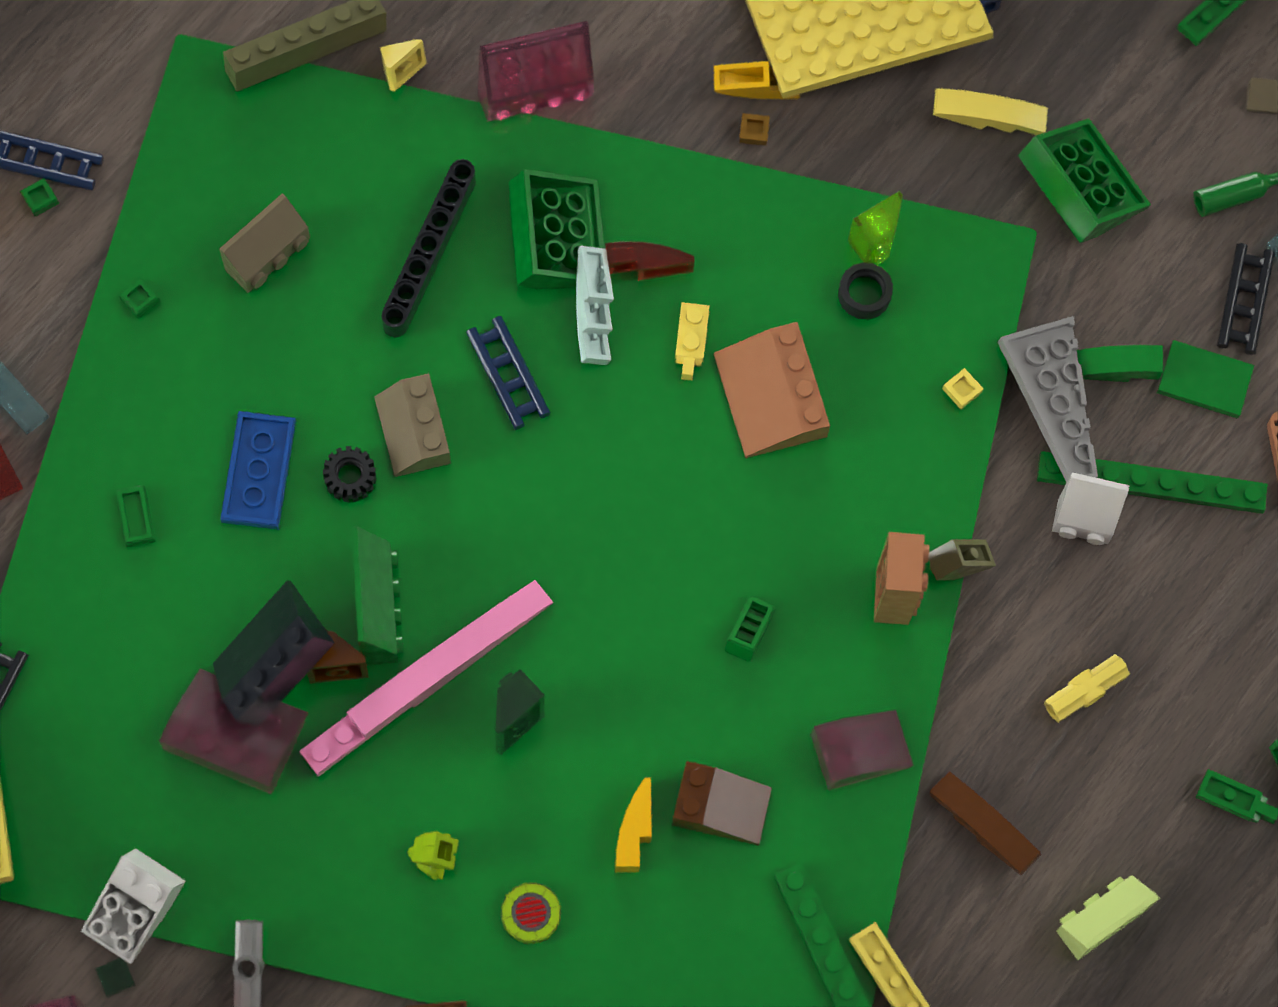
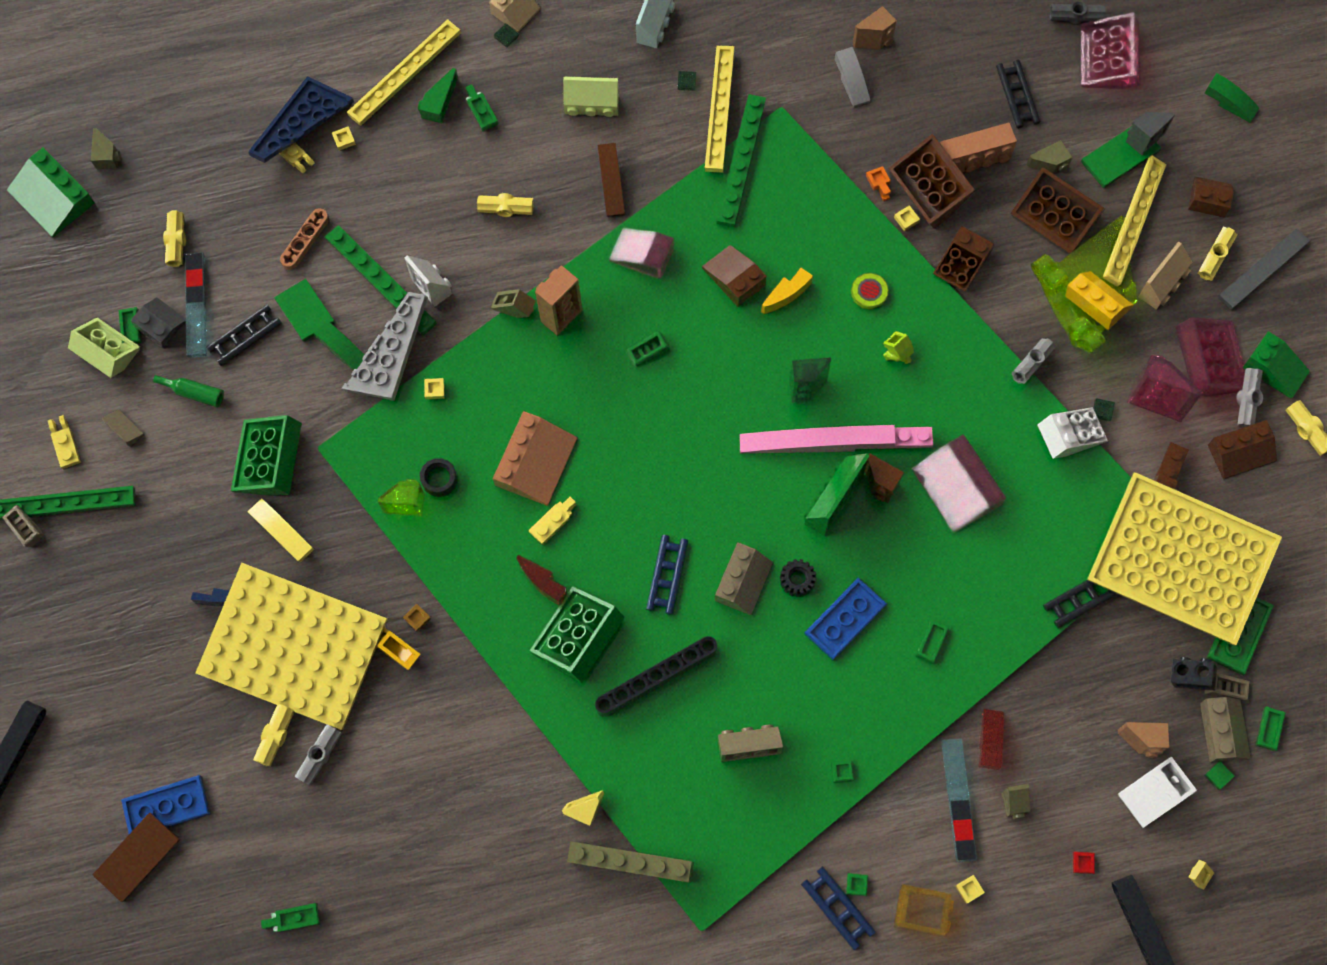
camera: 135 degrees left, 0 degrees up
(270, 656) = (917, 497): black slope -> none
(535, 71) = (517, 731): clear pink slope -> none
(592, 305) = (591, 576): light aqua slope -> none

